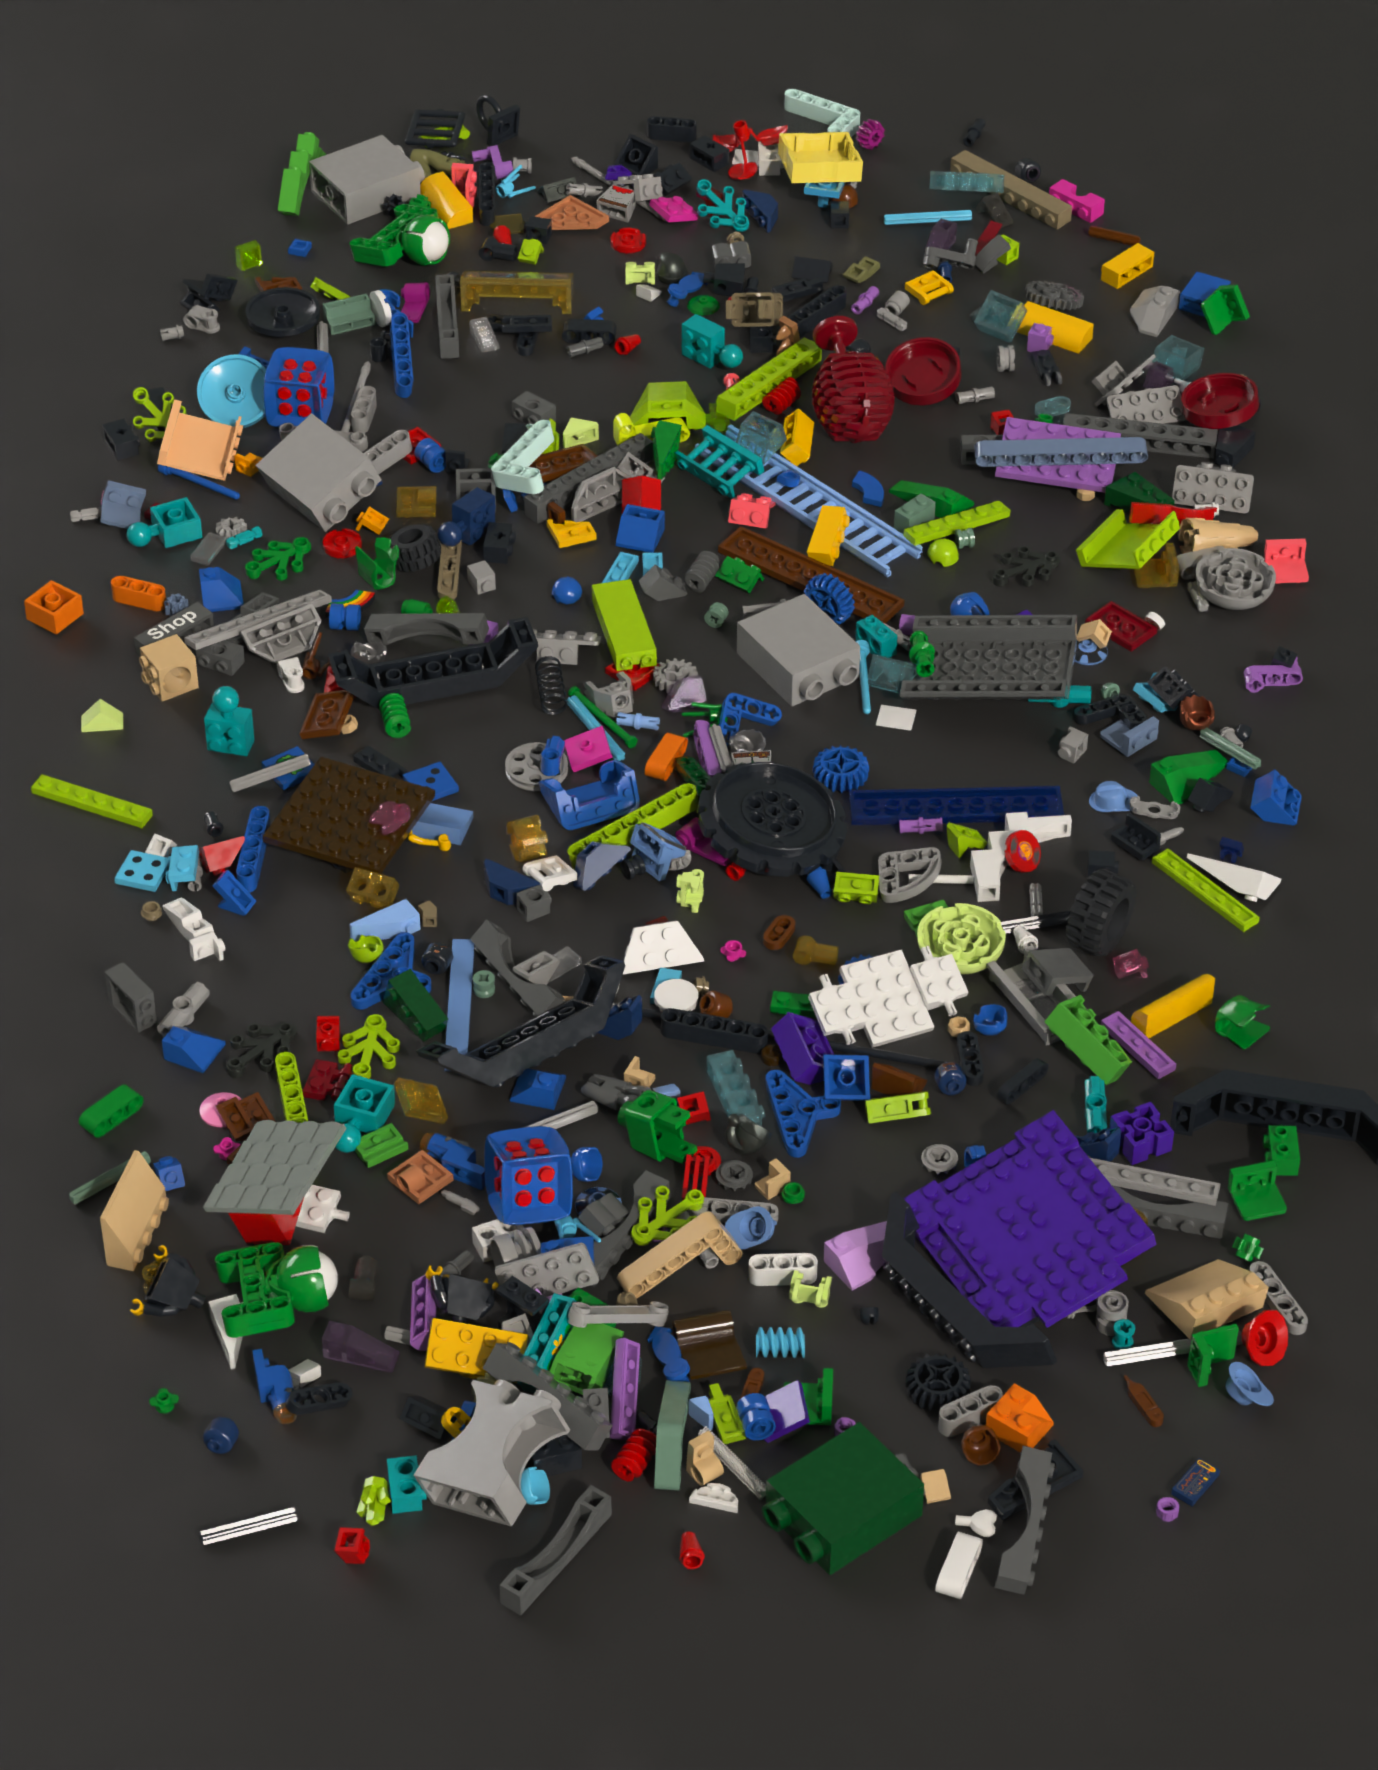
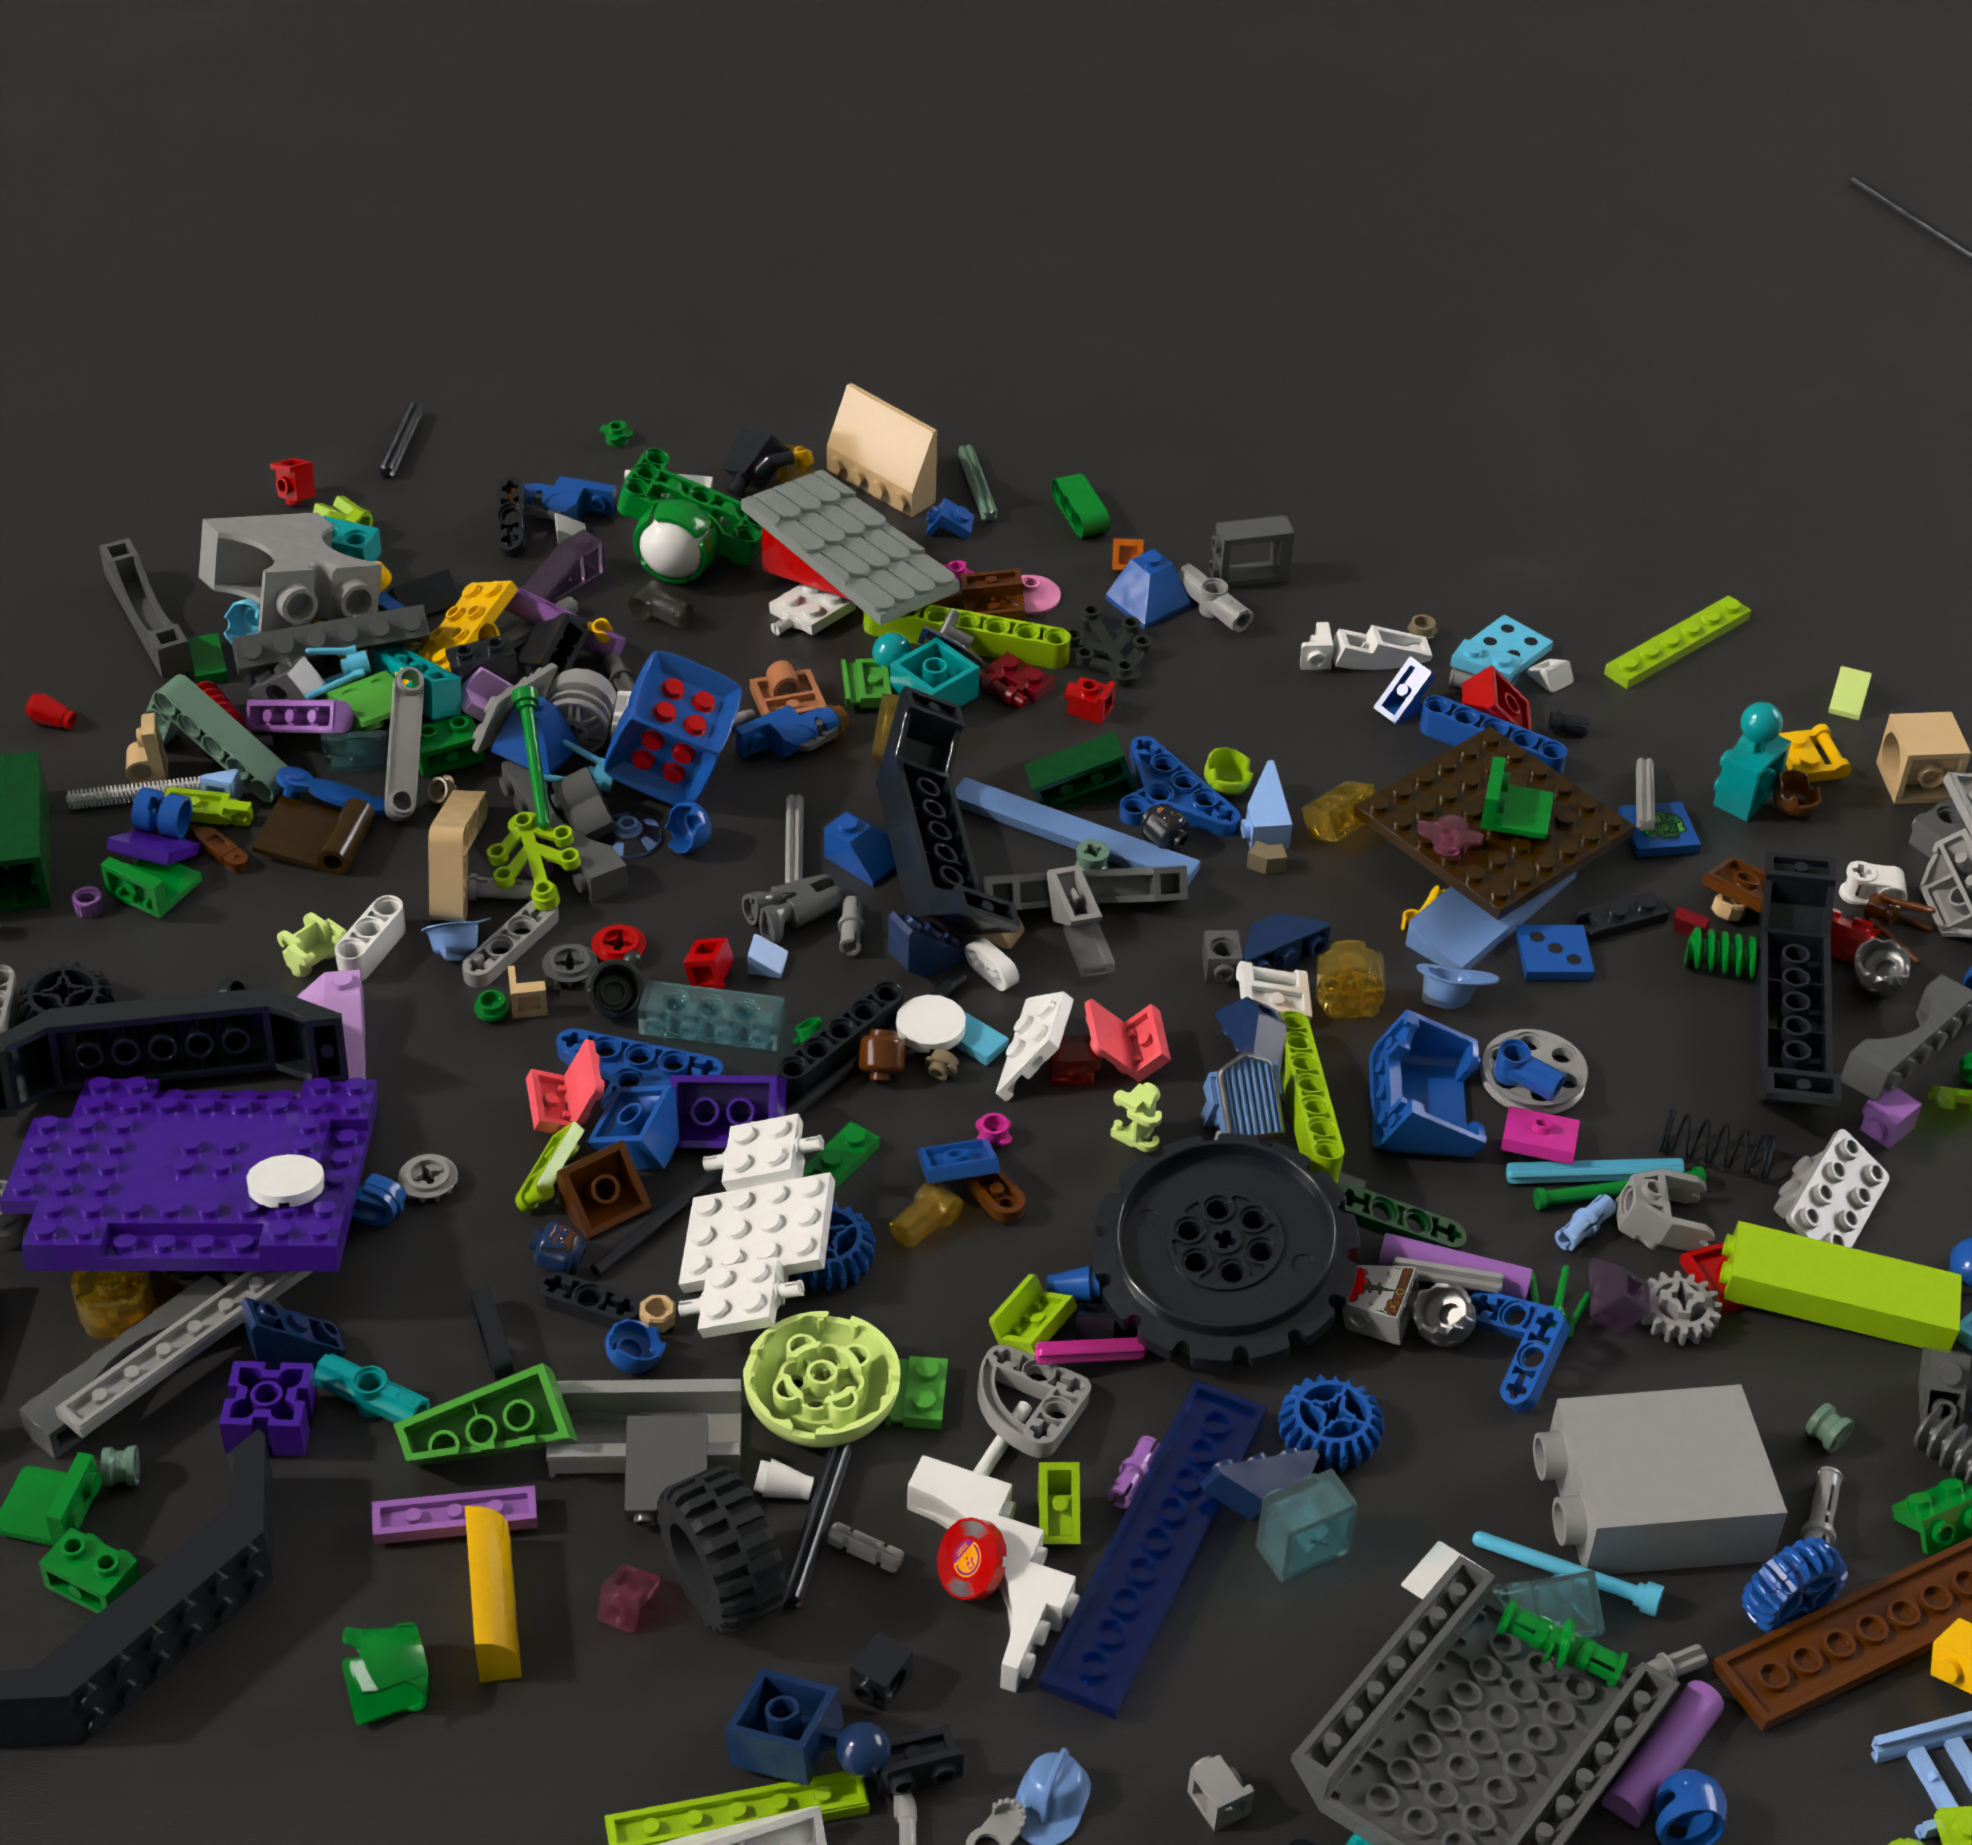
camera: 115 degrees right, 0 degrees up
(155, 1068) = (1124, 551): none -> orange tile
(178, 728) = (1805, 757): none -> yellow plate
(221, 1433) = (530, 448): dark blue head -> none
(322, 1108) = (951, 636): none -> flat silver shield
(350, 795) = (1513, 807): none -> green bracket
(373, 1027) = (1005, 711): lime plant -> none
(376, 732) = (1685, 921): none -> dark red tile
(493, 802) = (1451, 987): none -> medium blue piece
(562, 1506) = (207, 658): none -> green tile
(563, 1376) = (353, 667): none -> medium azure plant
(566, 1238) = (526, 700): none -> green piece
(614, 1064) = (851, 925): none -> light grey pin
(630, 912) = (1132, 1046): none -> coral bracket
(636, 1075) = (811, 938): tan panel -> none
(654, 1116) = (688, 894): green piece -> none
(664, 757) = (1486, 1224): orange beam -> none
(697, 1160) = (588, 919): red tile -> none
(711, 1042) = (807, 1028): none -> green plate
(715, 1496) = (102, 766): white tile -> none
(773, 947) = (958, 1160): none -> blue tile
(780, 1342) = (256, 888): medium azure piece -> none
(841, 1116) = (568, 1097): none -> coral bracket
(862, 861) = (1089, 1351): none -> dark pink axle
(880, 638) = (1664, 1624): teal brick -> none
(895, 773) = (1247, 1482): none -> dark blue slope
(916, 750) = (1306, 1524): none -> clear light blue brick
(1025, 1155) = (285, 1180): none -> white tile
(1160, 869) = (791, 1726): none -> dark blue brick
(1214, 1174) = (120, 1466): none -> sand green wheel

